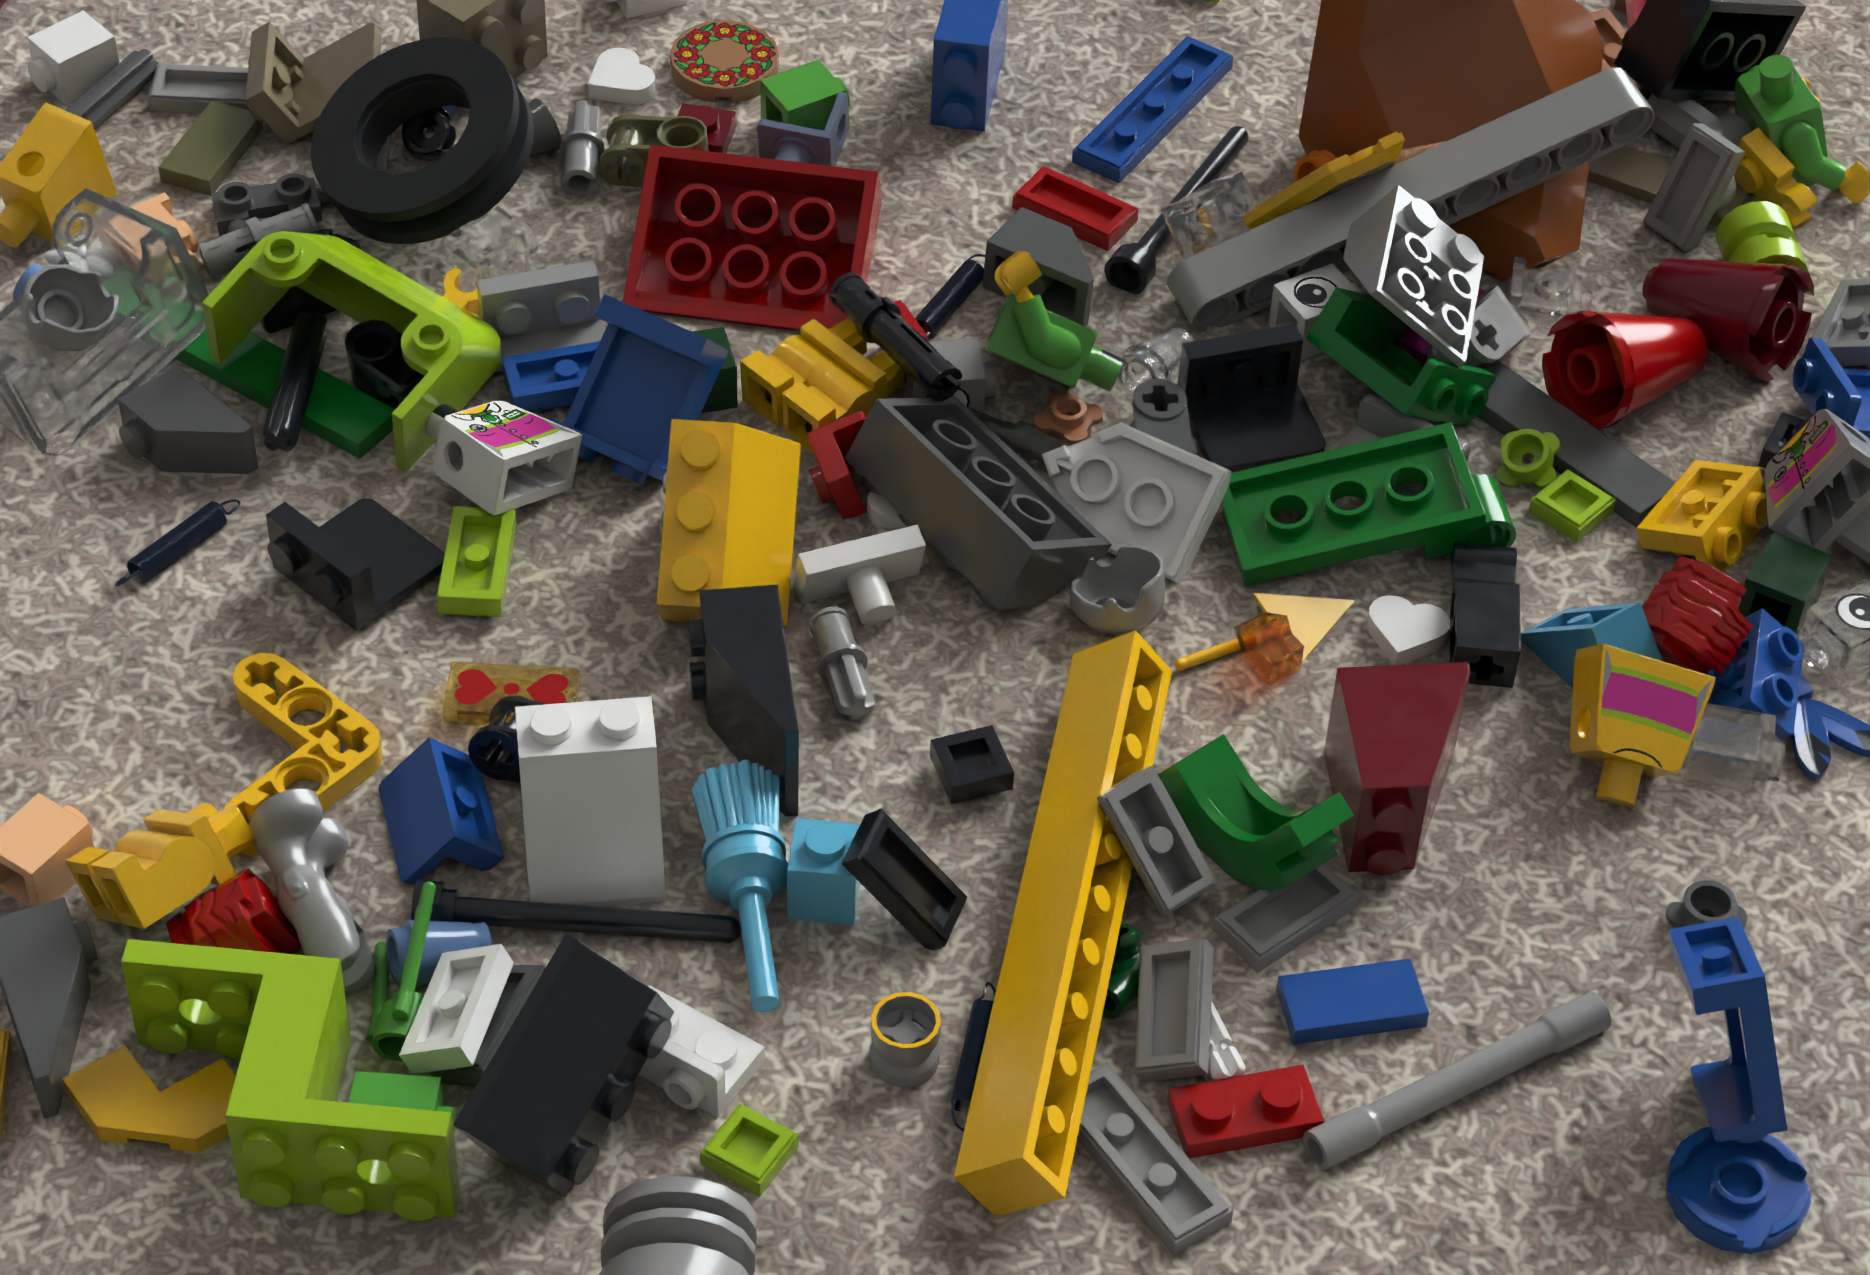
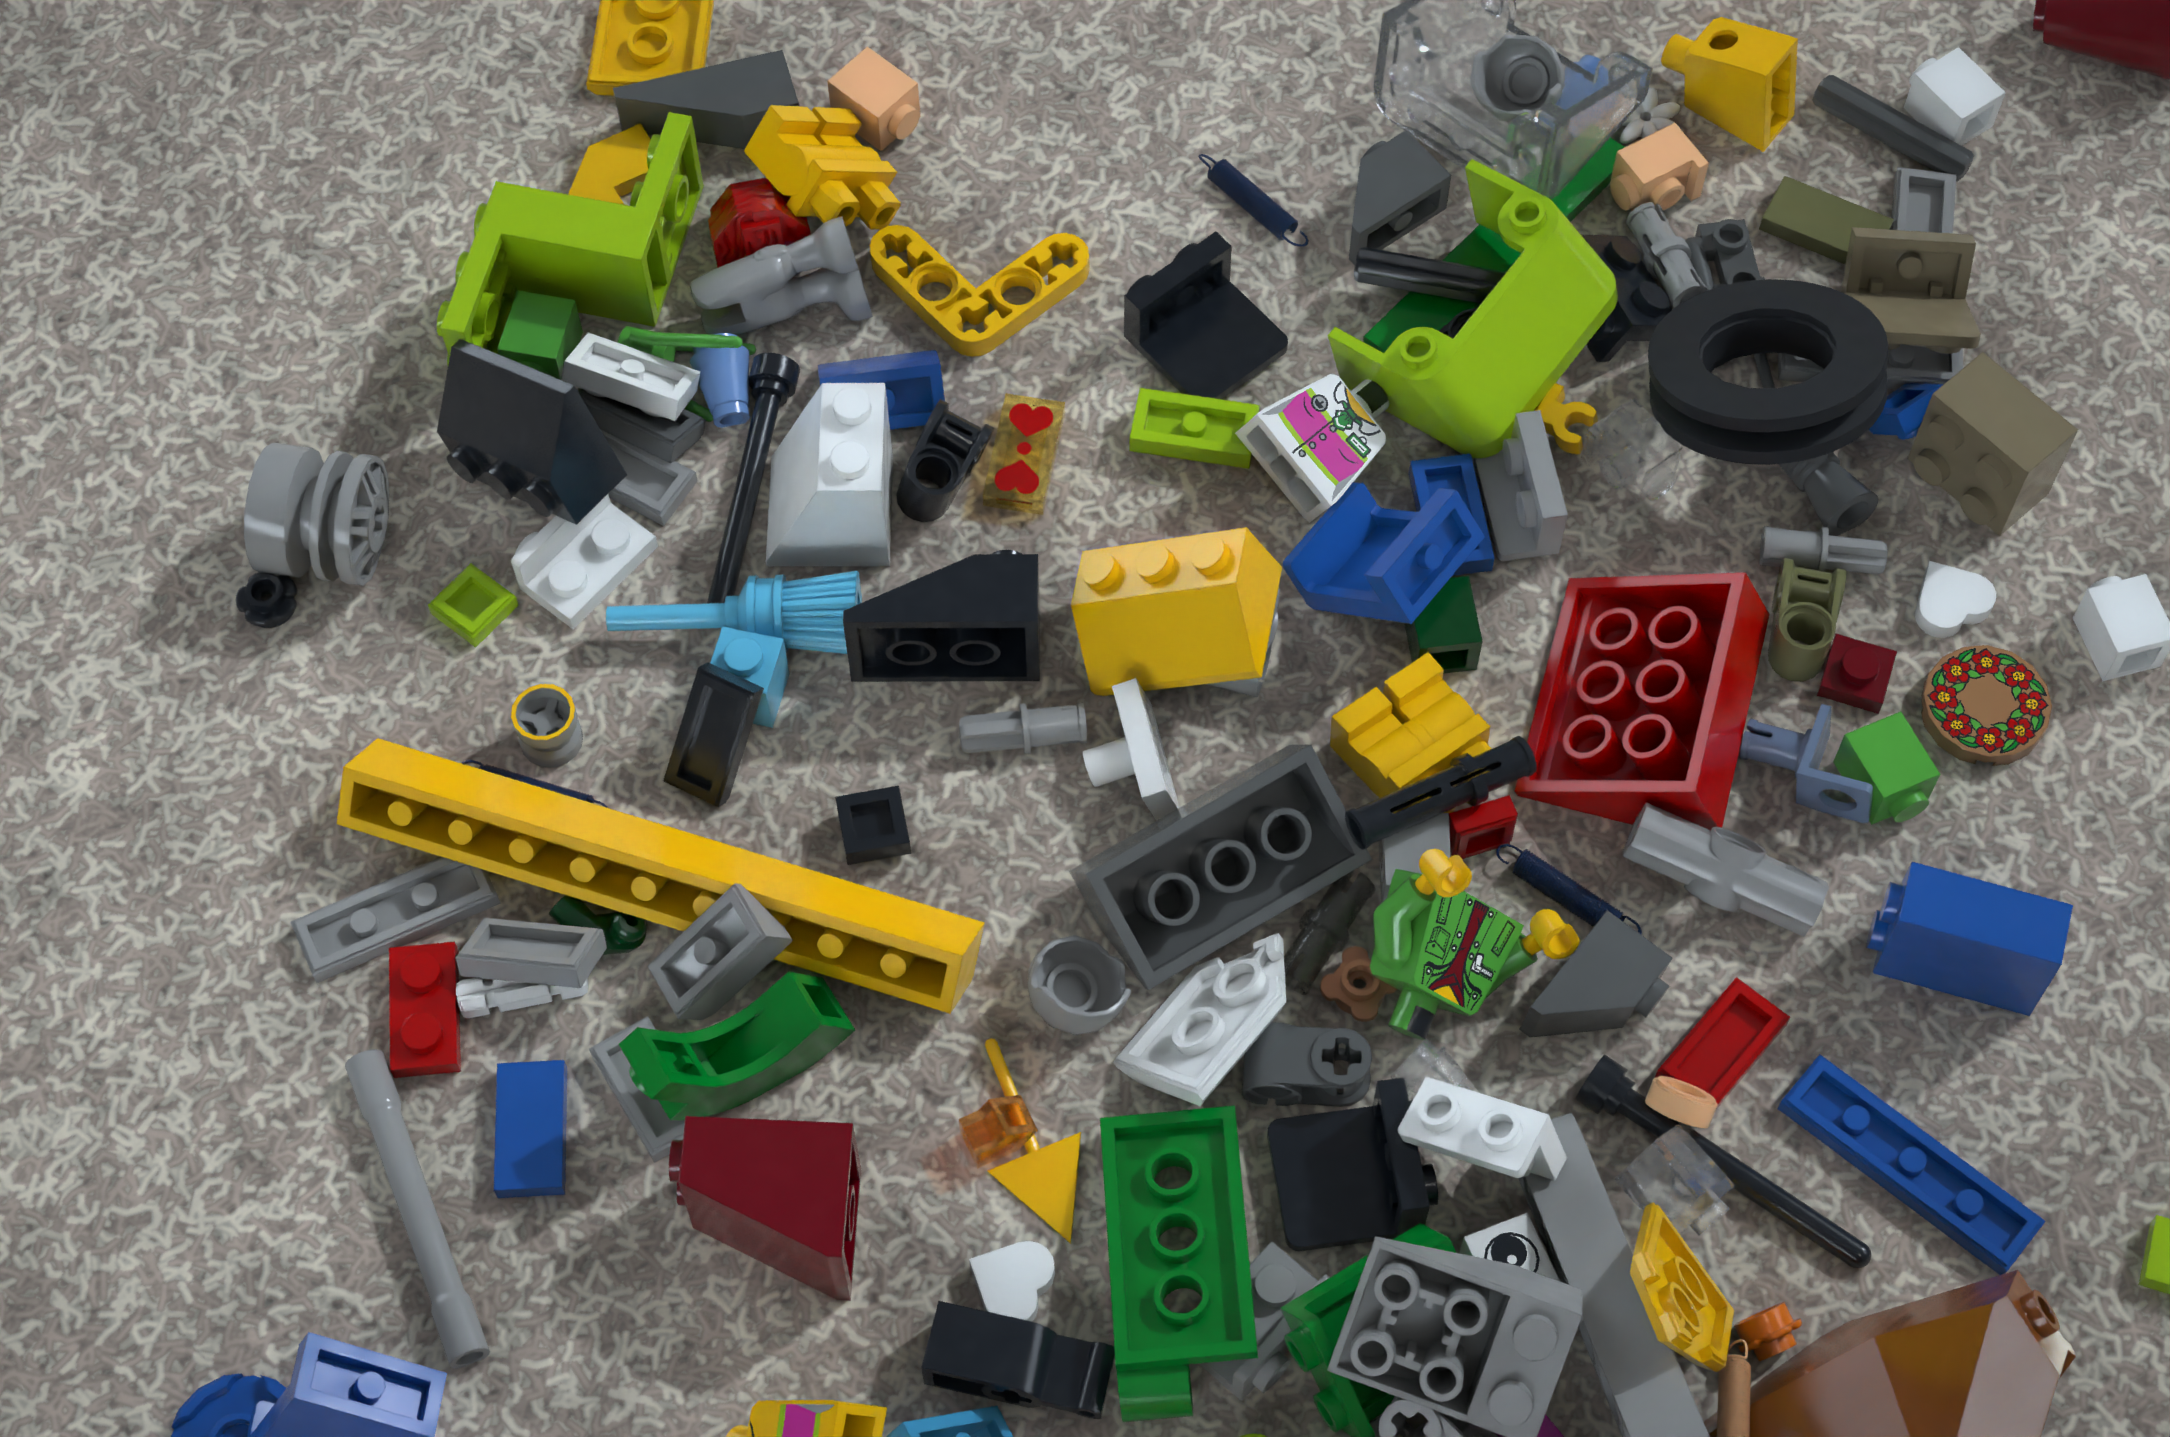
camera: 100 degrees right, 15 degrees up
(833, 474) = (1273, 731): red bracket -> none
(920, 192) = (1725, 869): none -> light grey piece
(1144, 211) = (1681, 1101): none -> light nougat tile
(1229, 284) = (1482, 1131): none -> white bracket

